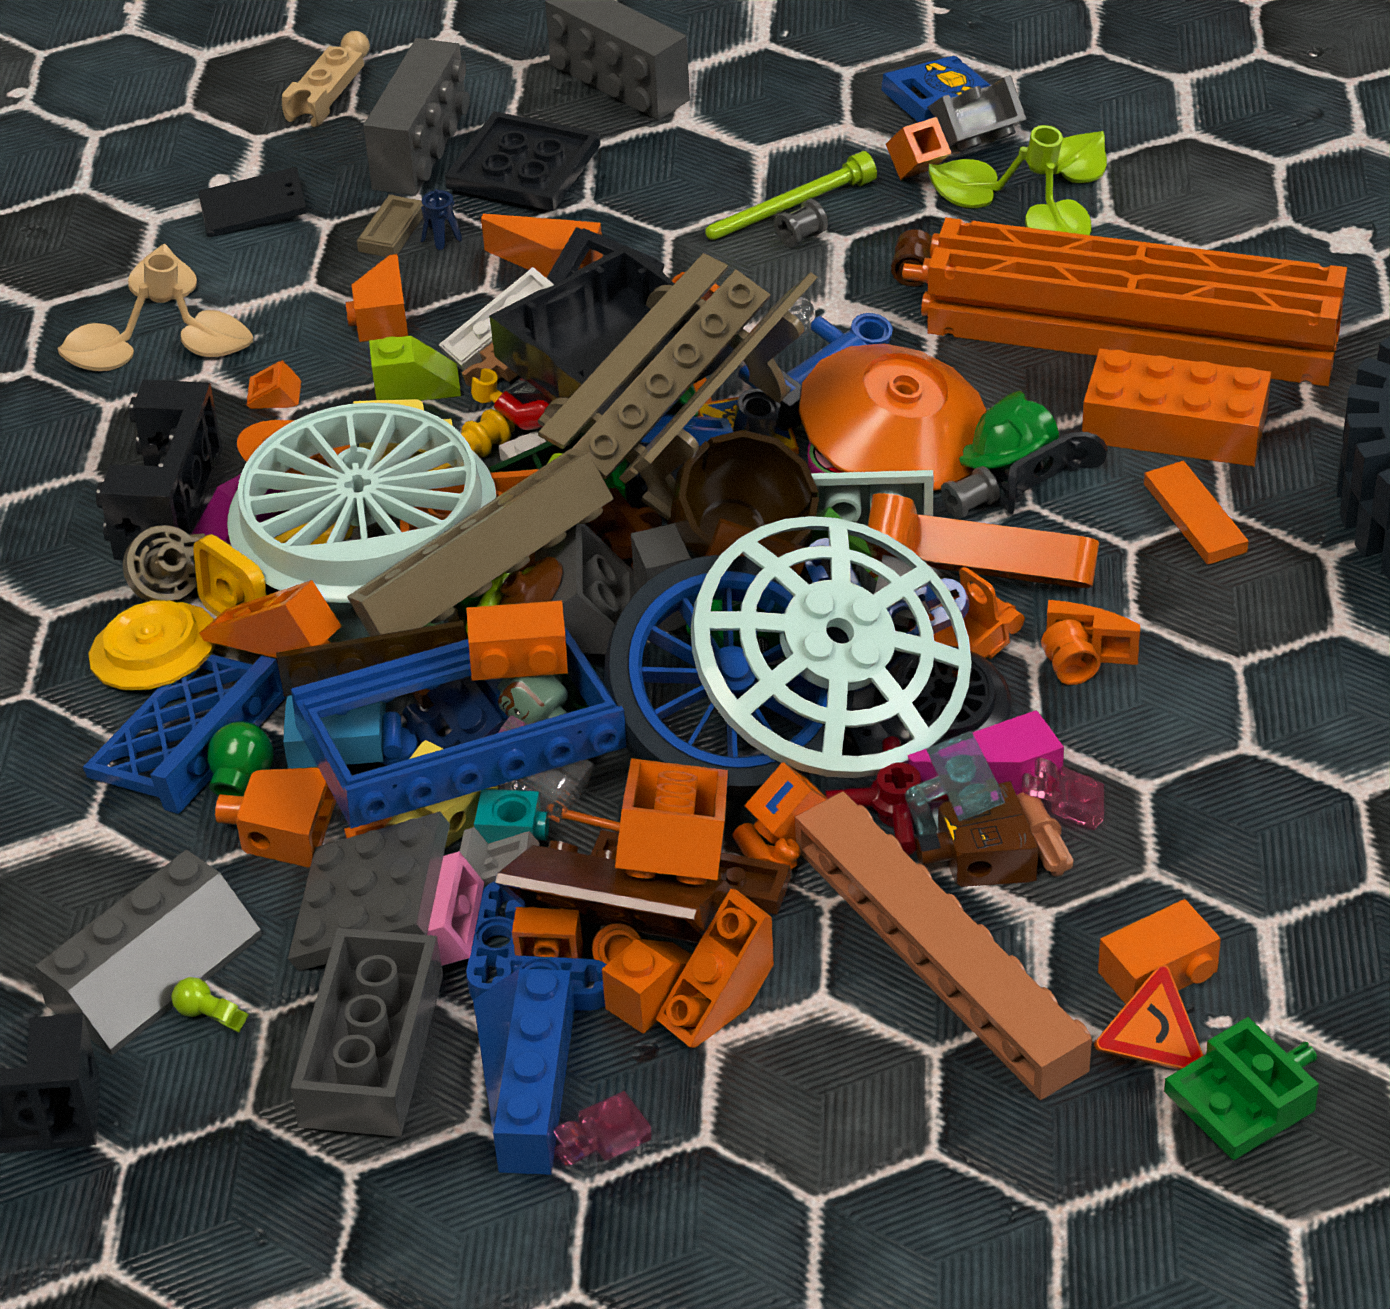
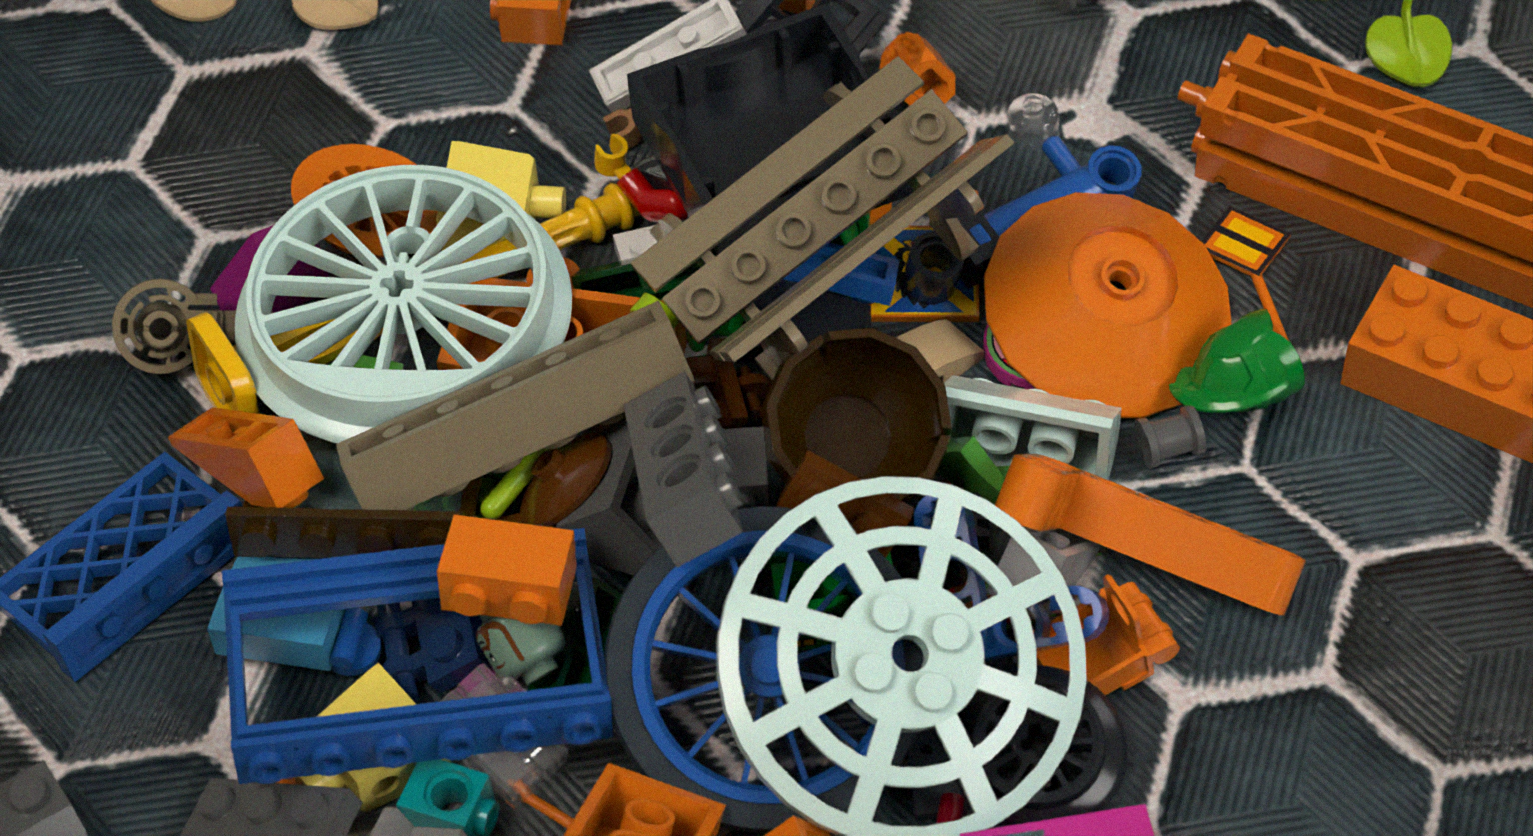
camera: 15 degrees right, 10 degrees up
(151, 645) = (117, 433): yellow piece -> none
(179, 454) = (239, 160): black plate -> none
(235, 754) = (159, 628): green piece -> none
(274, 388) = (379, 90): orange slope -> none
(280, 814) = (181, 720): orange torso -> none
(411, 370) = (541, 105): lime slope -> none
(632, 544) = (684, 468): none -> dark grey brick
(910, 248) = (1203, 58): reddish brown wheel -> none
(983, 367) = (1249, 248): none -> piece
(1066, 452) = (1315, 403): black piece -> none
(1070, 652) = (1223, 718): orange wheel -> none
(1111, 634) = (1279, 699): orange slope -> none
(1196, 512) = (1453, 530): orange tile -> none

